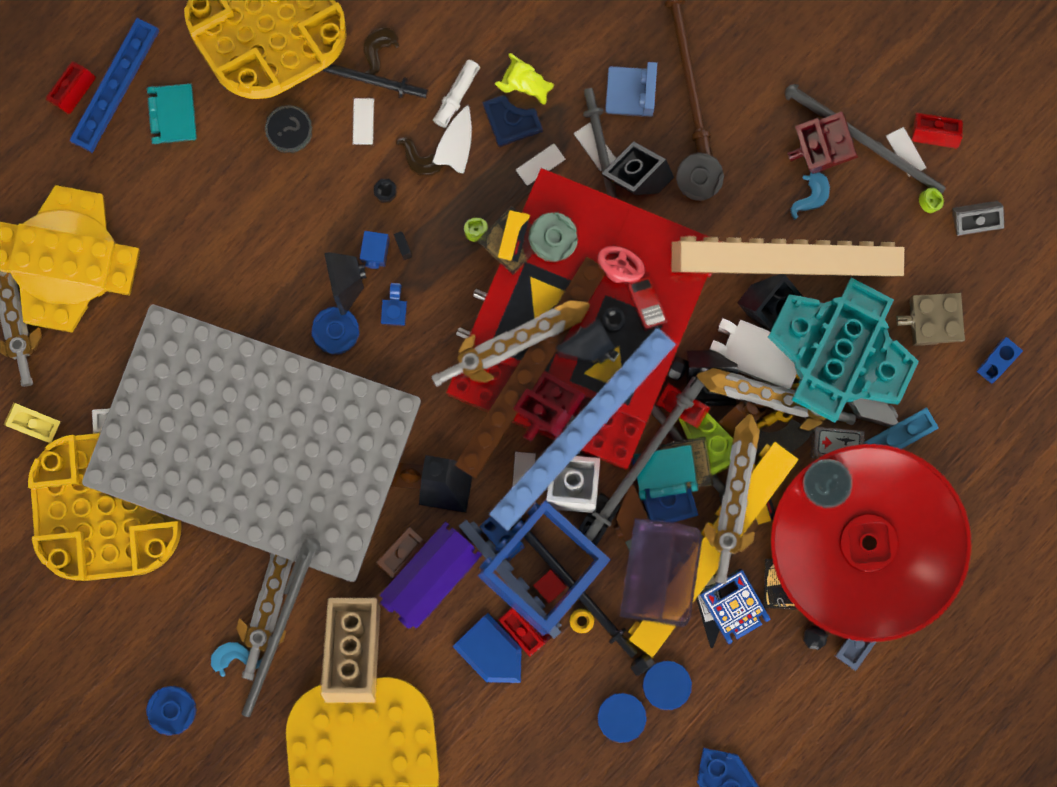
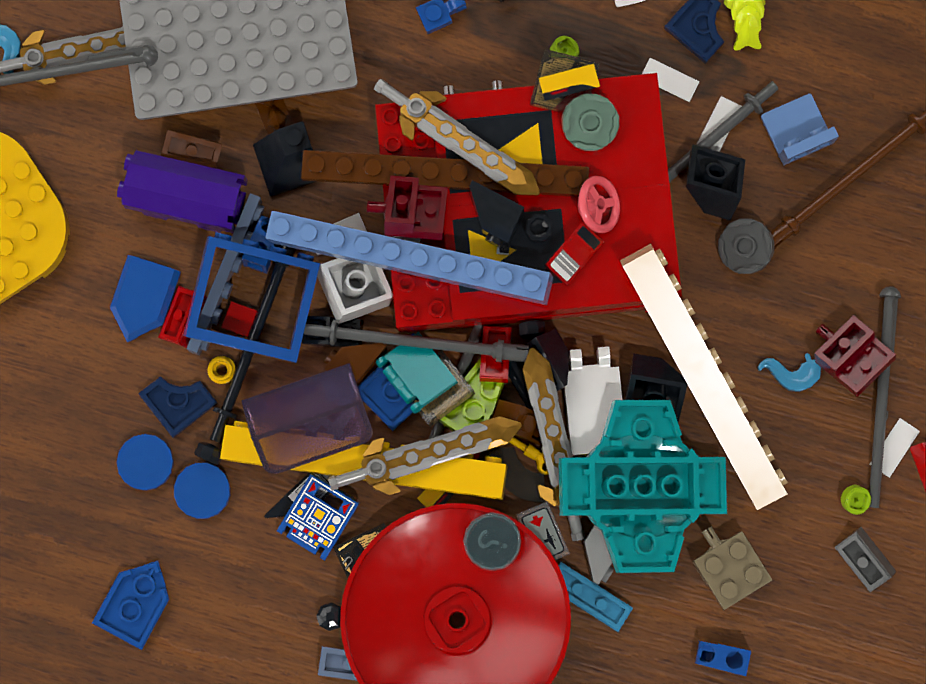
camera: 60 degrees right, 0 degrees up
(351, 650) = (66, 153): tan brick -> none
(591, 669) = (176, 405): none -> dark blue tile

